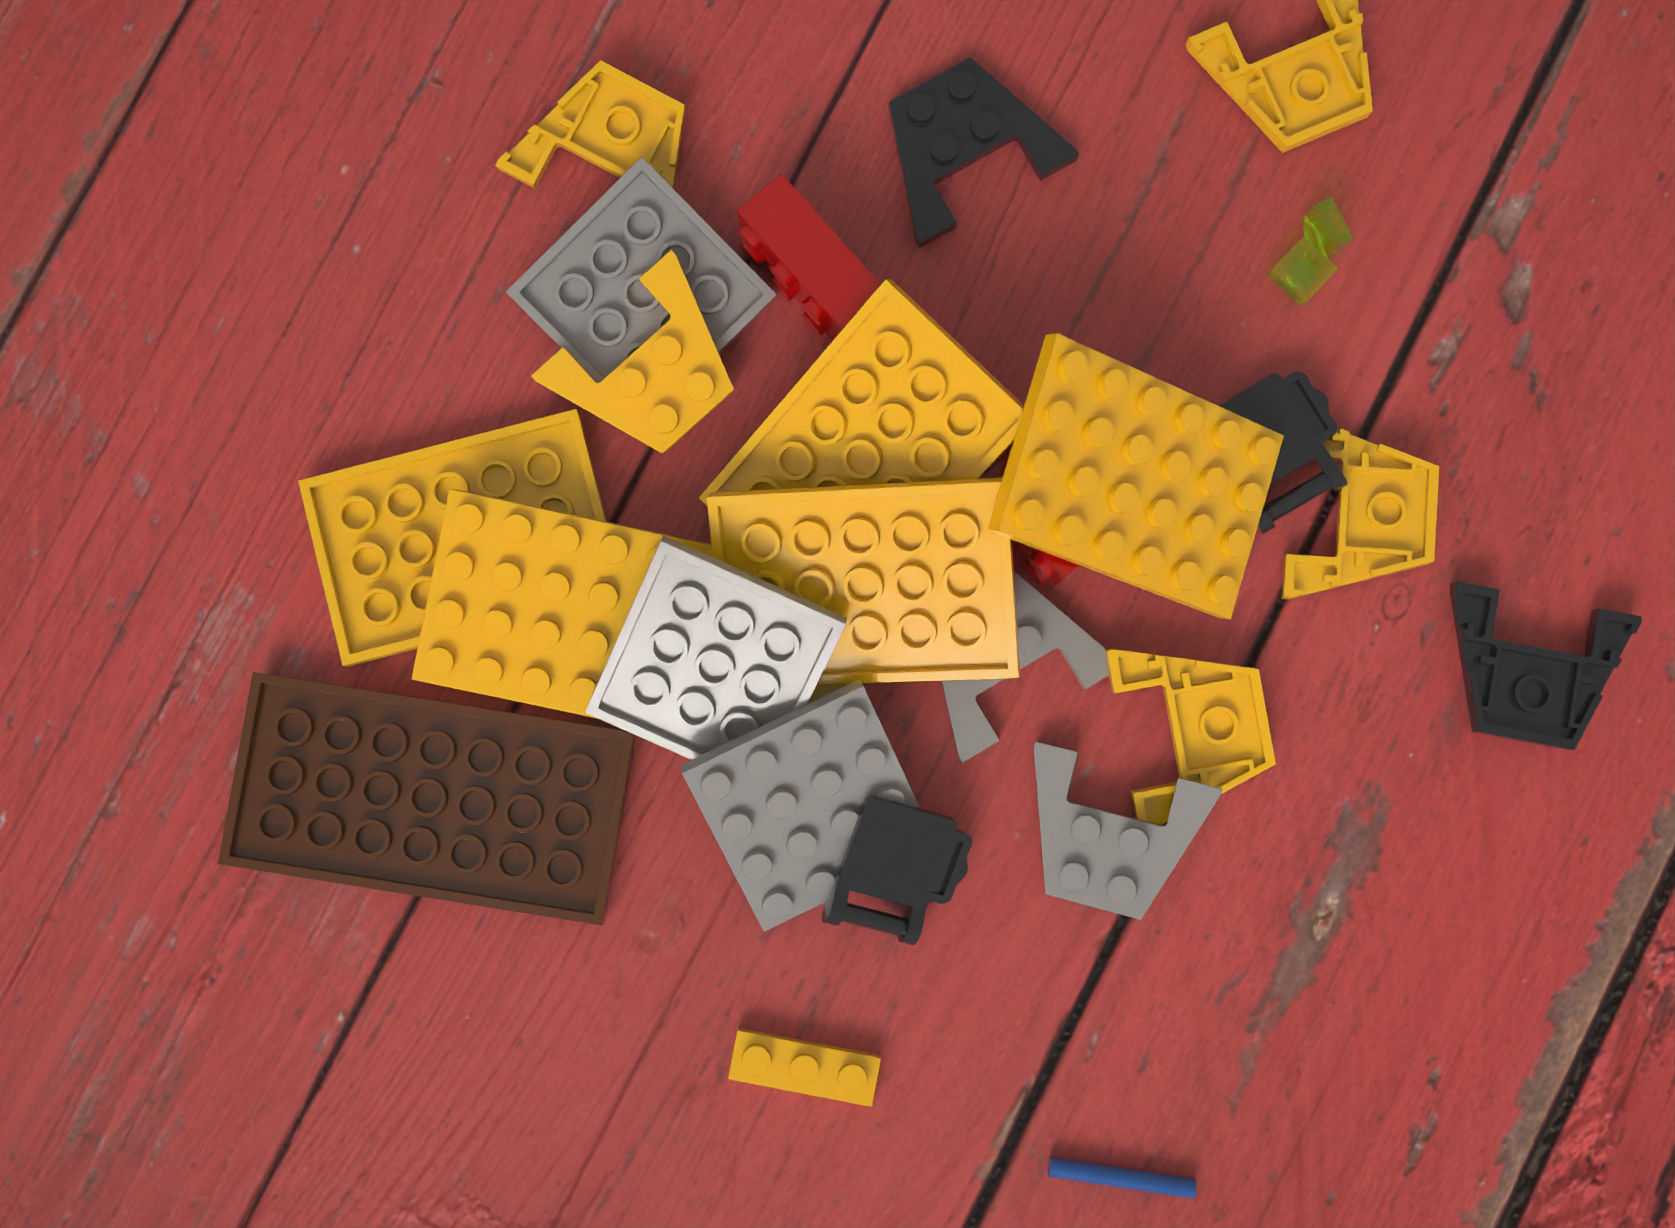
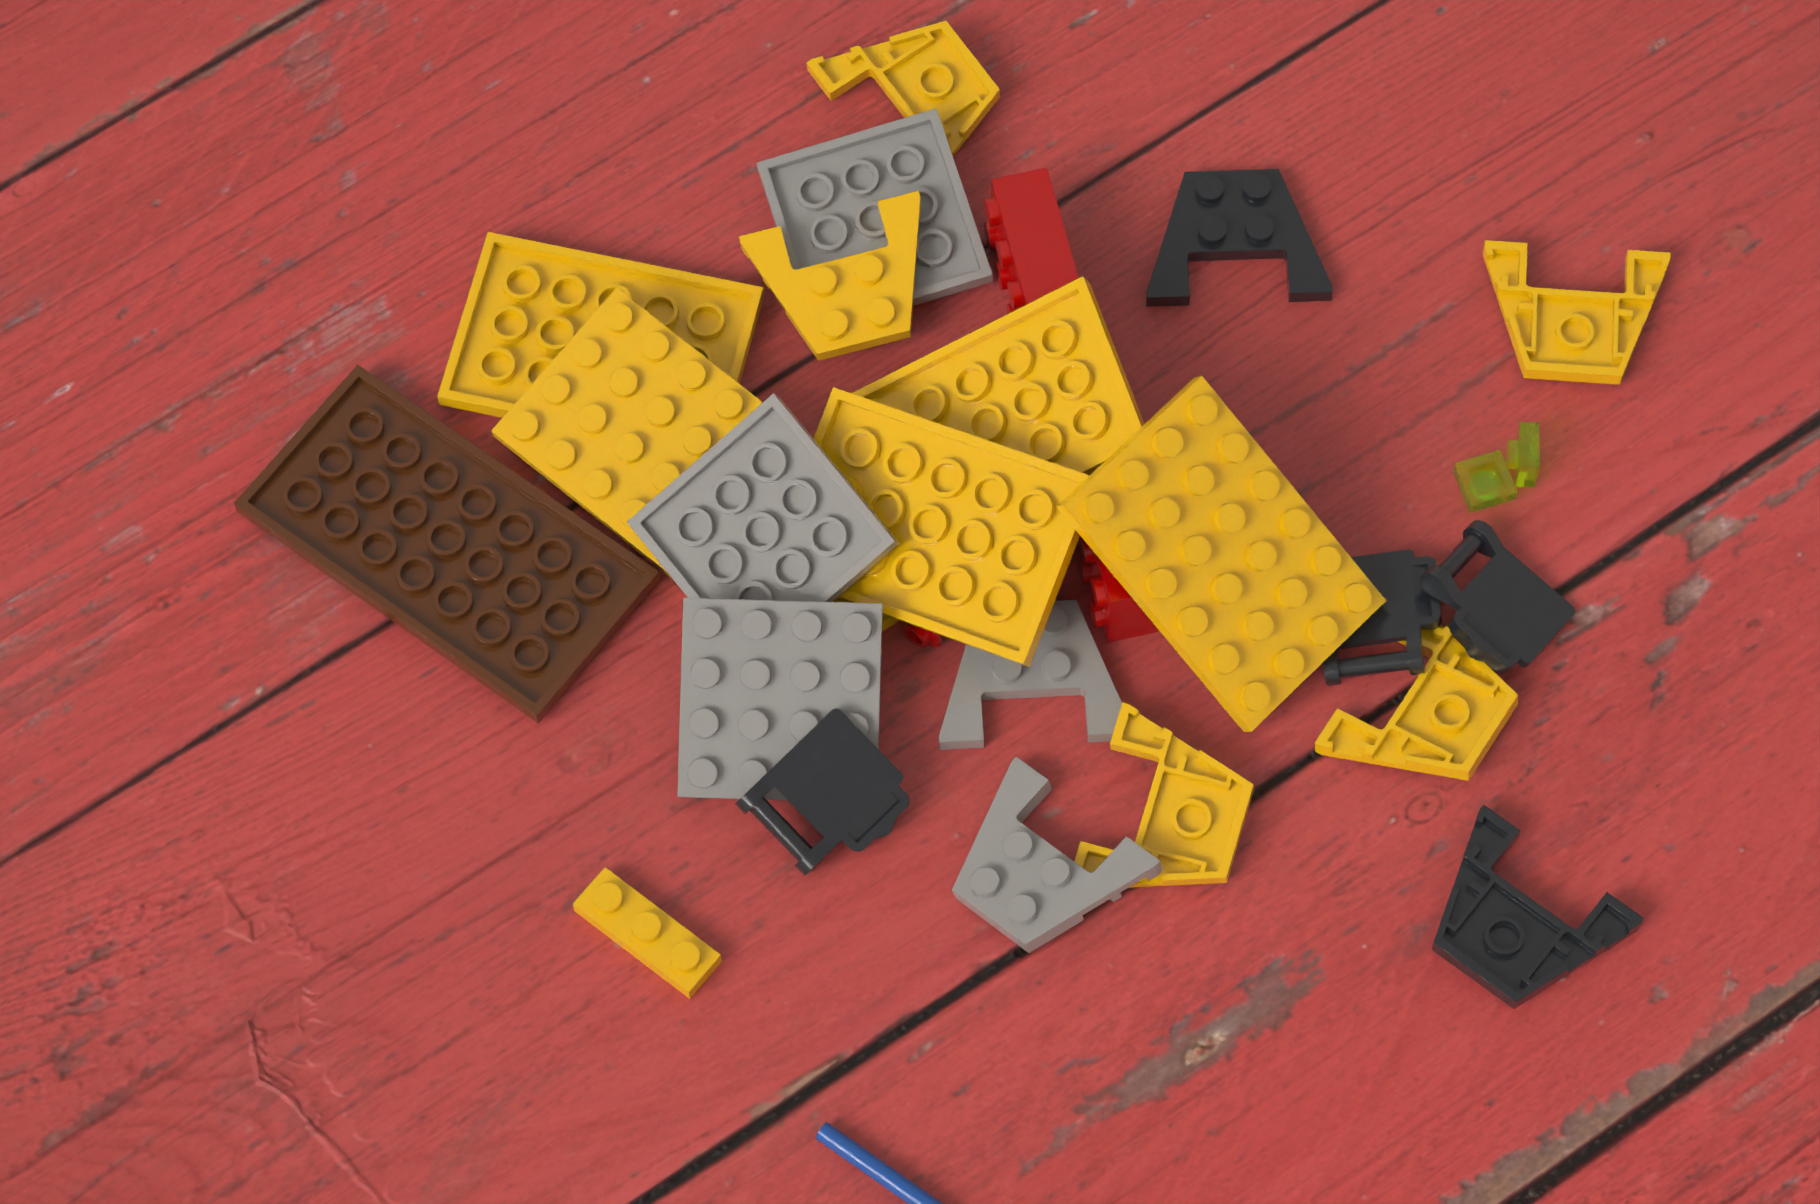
camera: 30 degrees right, 20 degrees down
(1385, 385) = (1506, 607): none -> black piece

